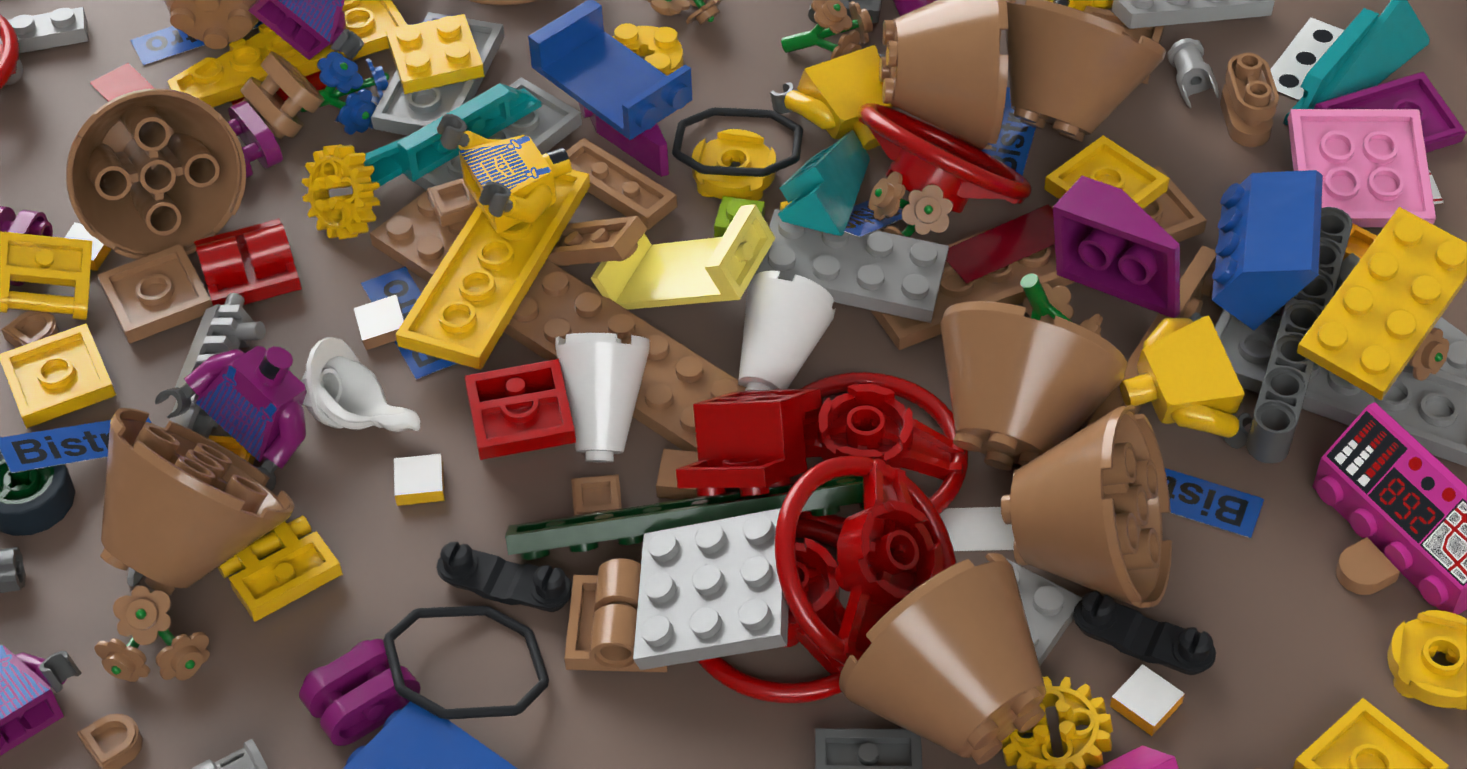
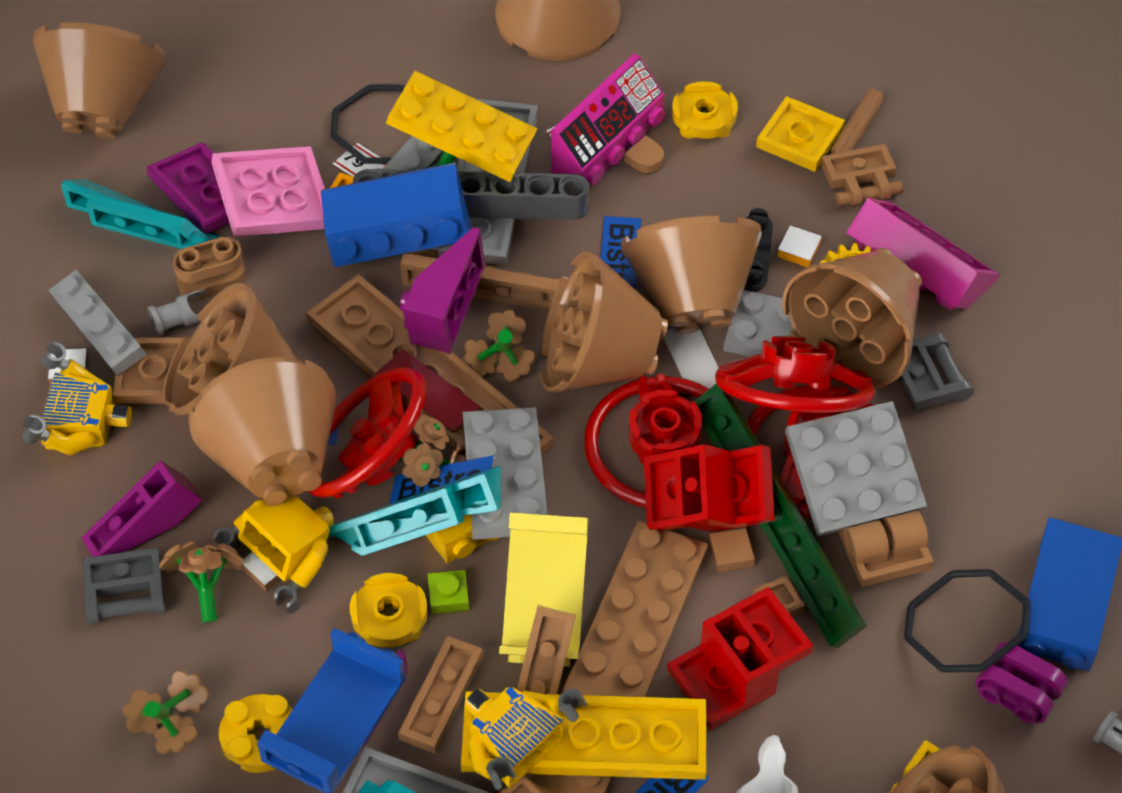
camera: 110 degrees left, 5 degrees up
(418, 479) = (814, 728): white tile -> none
(503, 580) = (882, 632): black piece -> none
(601, 389) = (686, 598): white cone -> none
(738, 171) = (349, 568): black piece -> none
(781, 329) = (608, 510): white cone -> none
(1111, 165) = (351, 331): yellow plate -> none
(1189, 379) = (542, 241): yellow torso -> none
(1302, 55) = (126, 252): white sticker -> none

